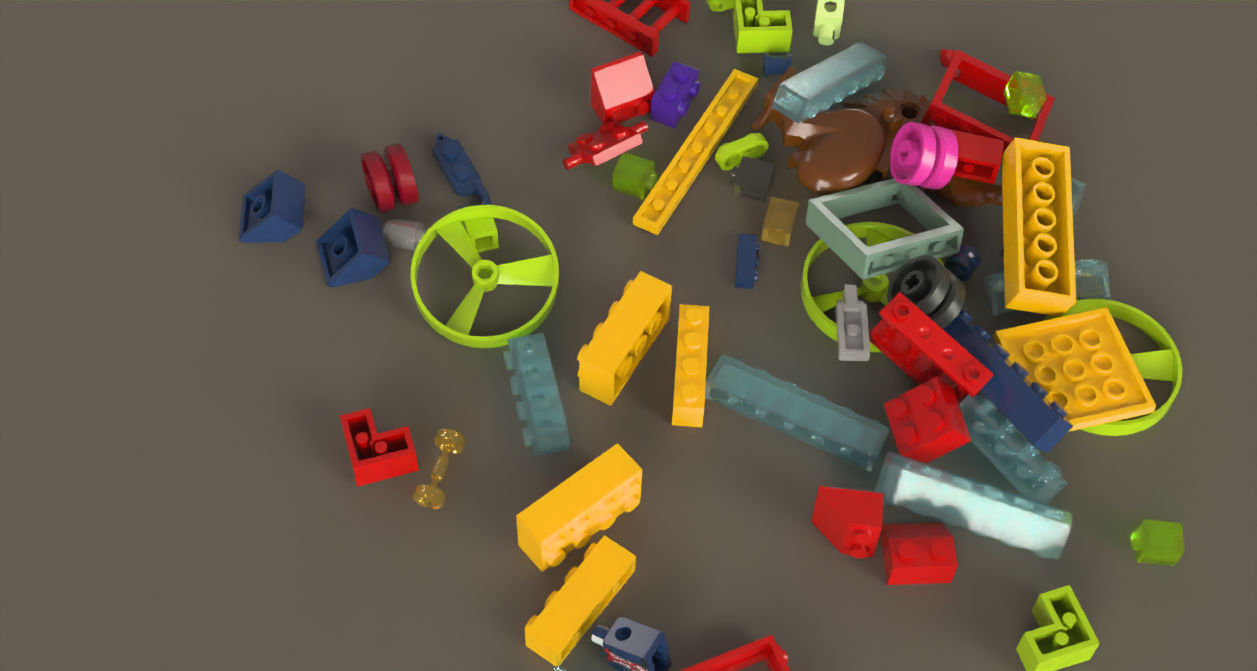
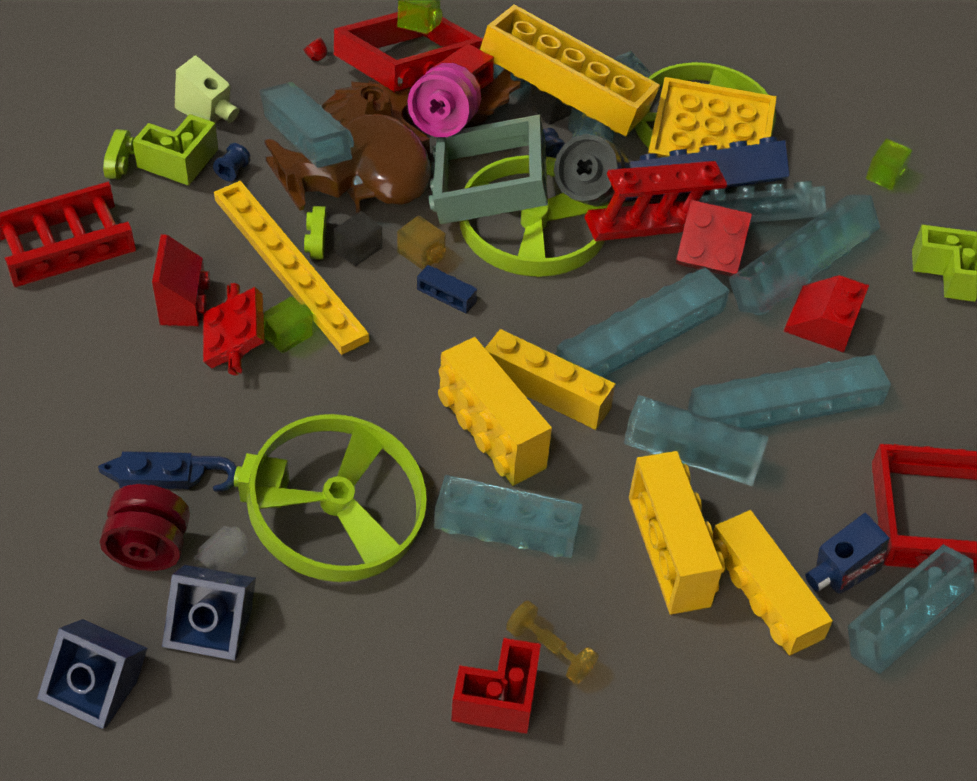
camera: 65 degrees left, 5 degrees down
(675, 94) = (209, 240): dark purple brick -> none
(694, 495) = (697, 438): none -> clear light blue brick
(794, 551) = (794, 394): none -> clear light blue brick
(849, 519) = (788, 336): red slope -> none
(852, 327) = (582, 240): light grey hinge -> none

